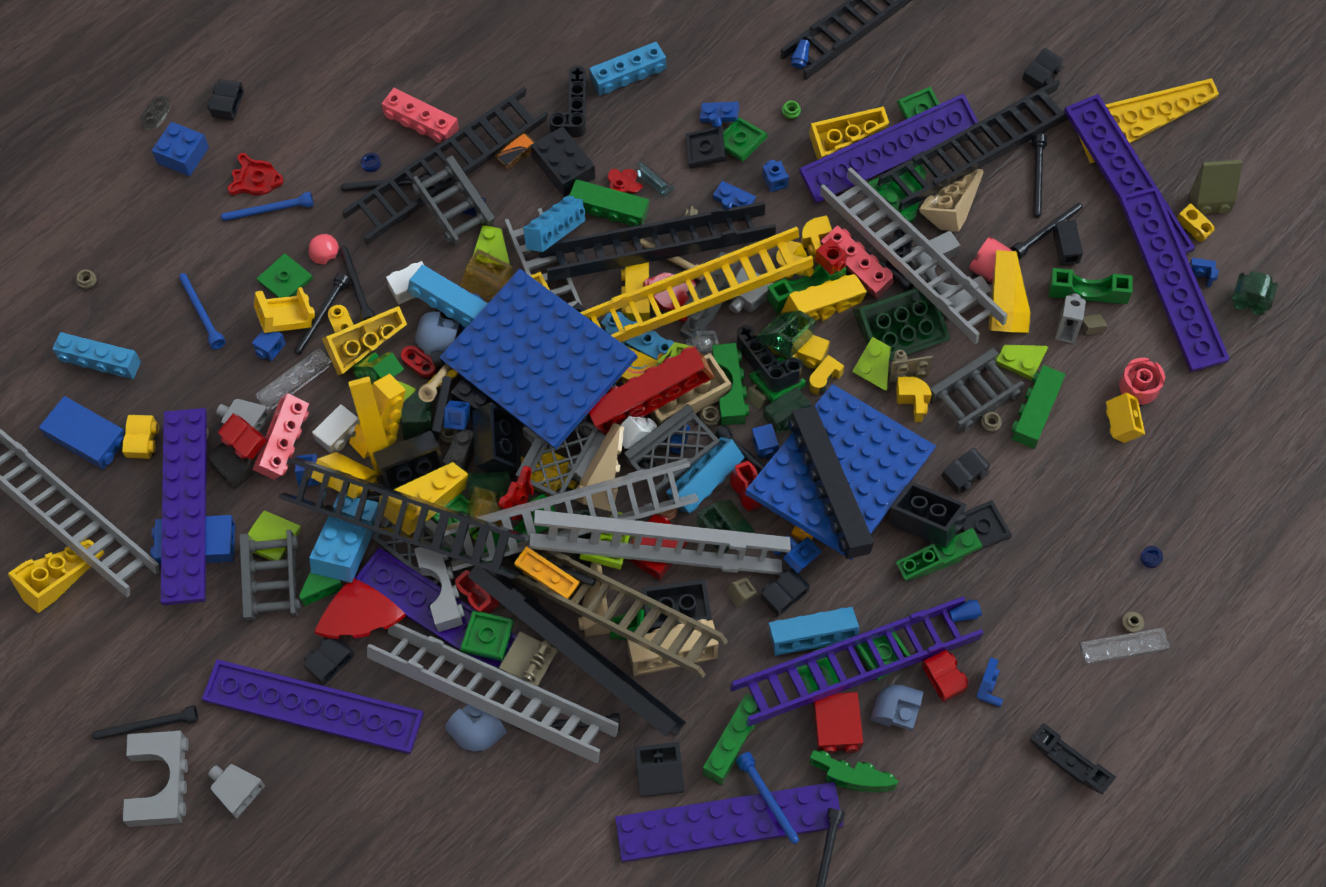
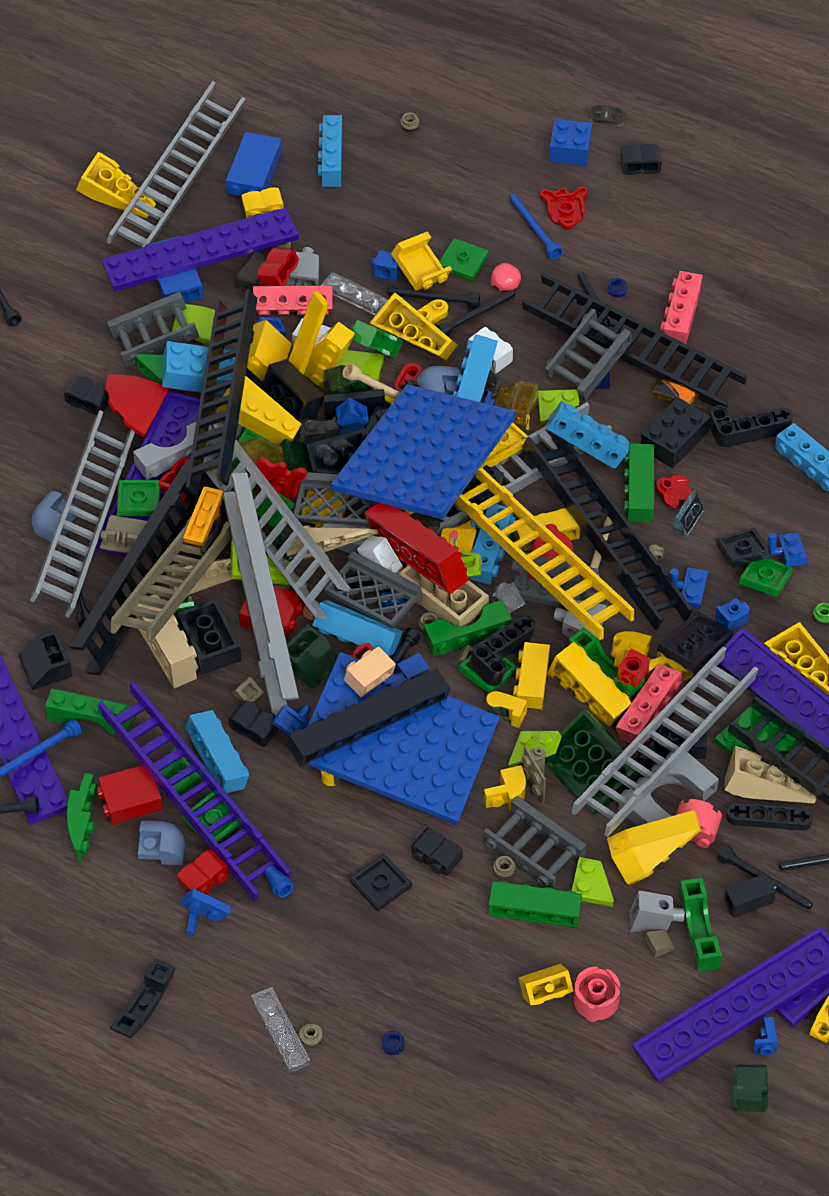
camera: 75 degrees right, 10 degrees down
(215, 338) = (380, 227): blue piece -> none
(313, 706) = (41, 399): dark purple plate -> none
(780, 410) = (462, 684): clear green brick -> none
(781, 467) = (369, 671): none -> light nougat brick
(788, 332) = (529, 653): clear green slope -> none
(804, 207) = (695, 641): none -> black plate
(928, 514) = (368, 819): black brick -> none
(936, 557) = (331, 845): green slope -> none
(986, 209) = (769, 820): none -> black beam

